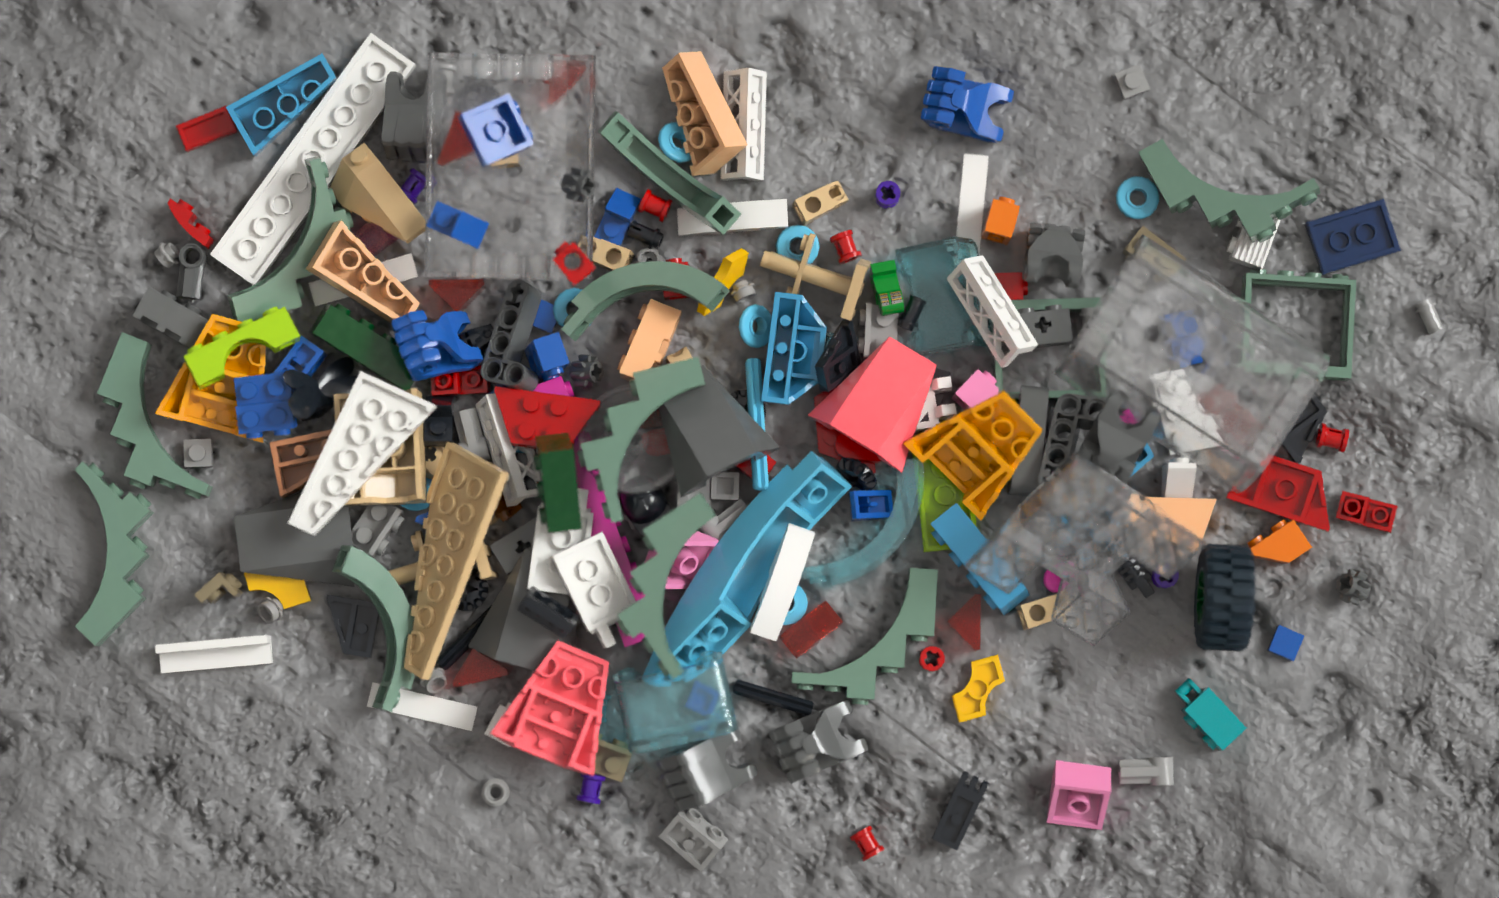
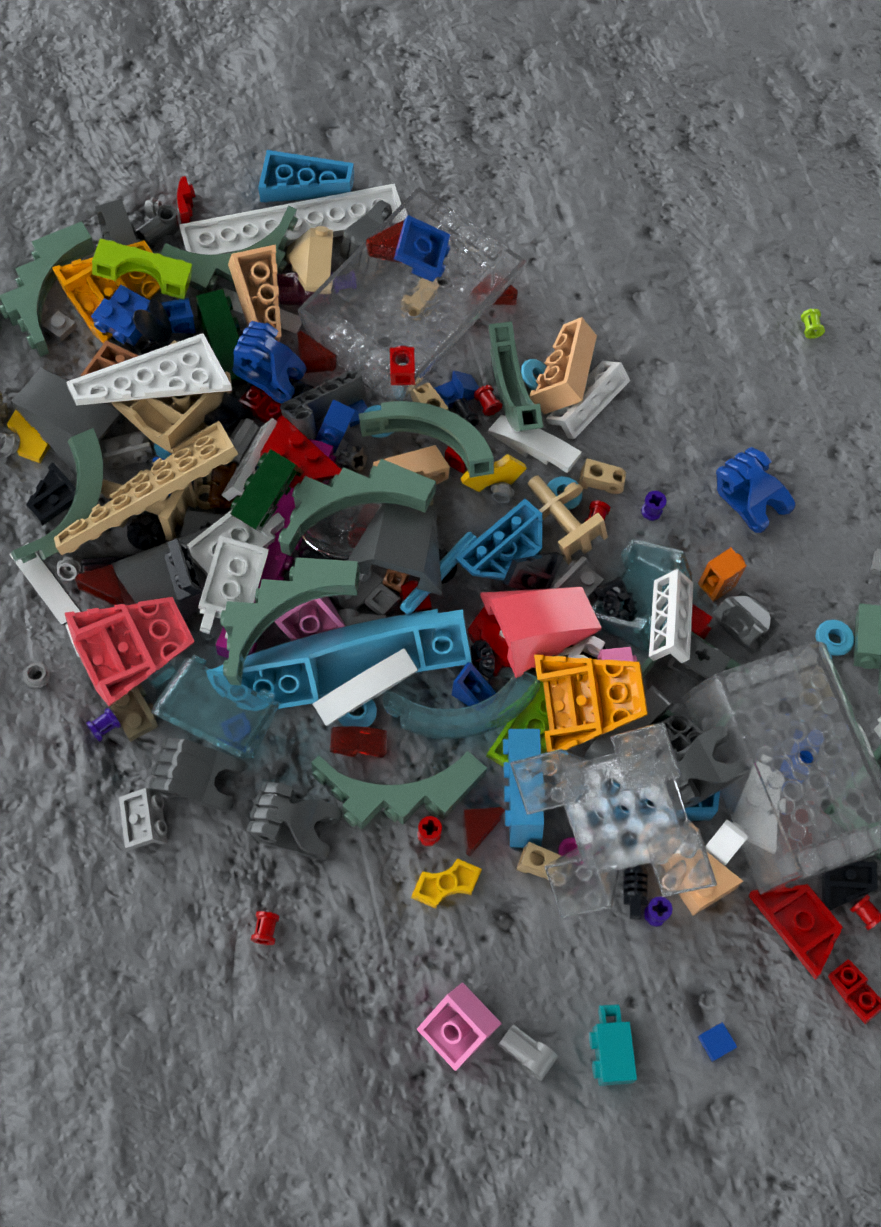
camera: 35 degrees right, 20 degrees down
(206, 129) = (243, 166): red tile -> none
(457, 224) = (347, 292): blue slope -> none
(578, 184) = (447, 320): dark grey gear -> none
(763, 320) = (485, 509): medium azure piece -> none
(773, 697) = (289, 767): black axle -> none
(886, 287) = (605, 557): green leg -> none
(928, 332) = (612, 603): none -> black gear
(959, 811) = (355, 963): black hinge -> none
(972, 197) = (721, 542): white sticker -> none
(1224, 597) = (696, 956): black wheel -> none
(1282, 544) = (769, 960): orange slope -> none
(1353, 587) = (806, 1039): dark grey gear -> none

